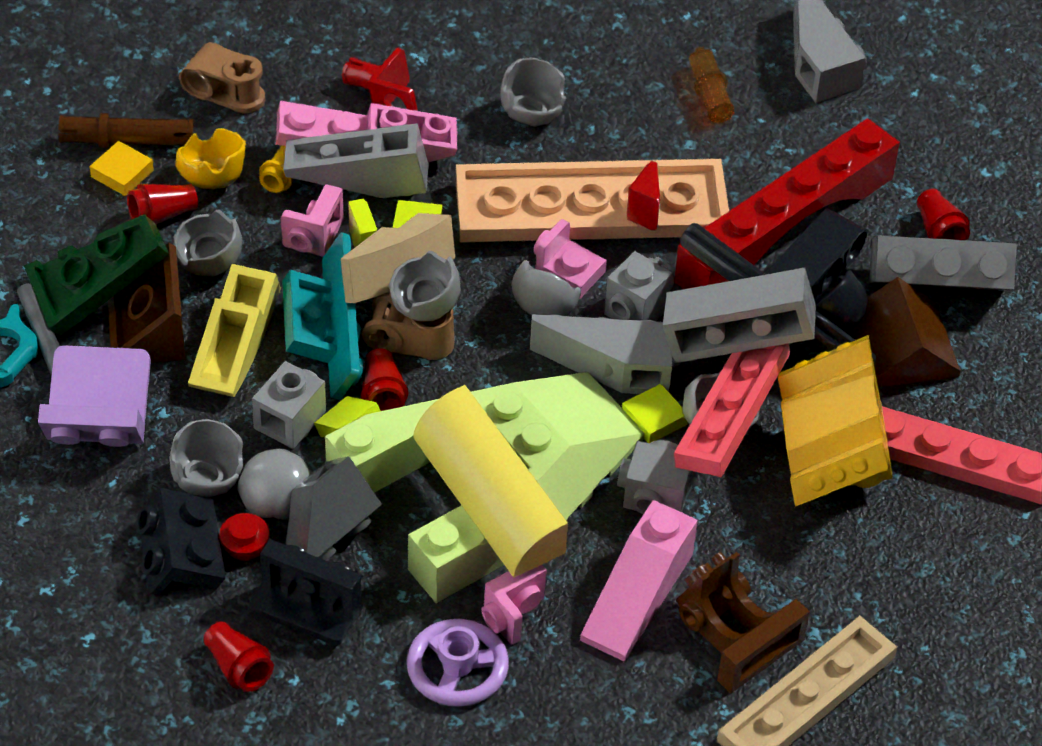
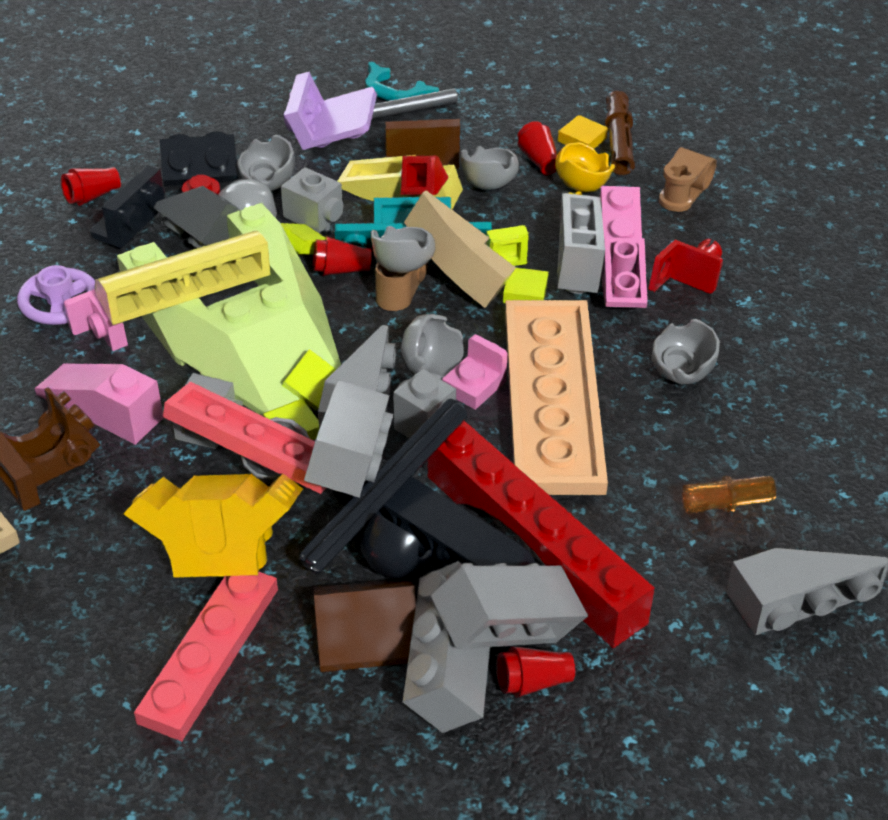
camera: 95 degrees right, 5 degrees down
(91, 275) = (446, 105): dark green wing -> none
(269, 288) = (422, 174): none -> red slope
(316, 228) = (508, 215): bright pink bracket -> none
(601, 389) = (308, 379): none -> neon yellow tile
(645, 198) = (531, 405): red slope -> none
(915, 206) = (507, 605): none -> light grey brick

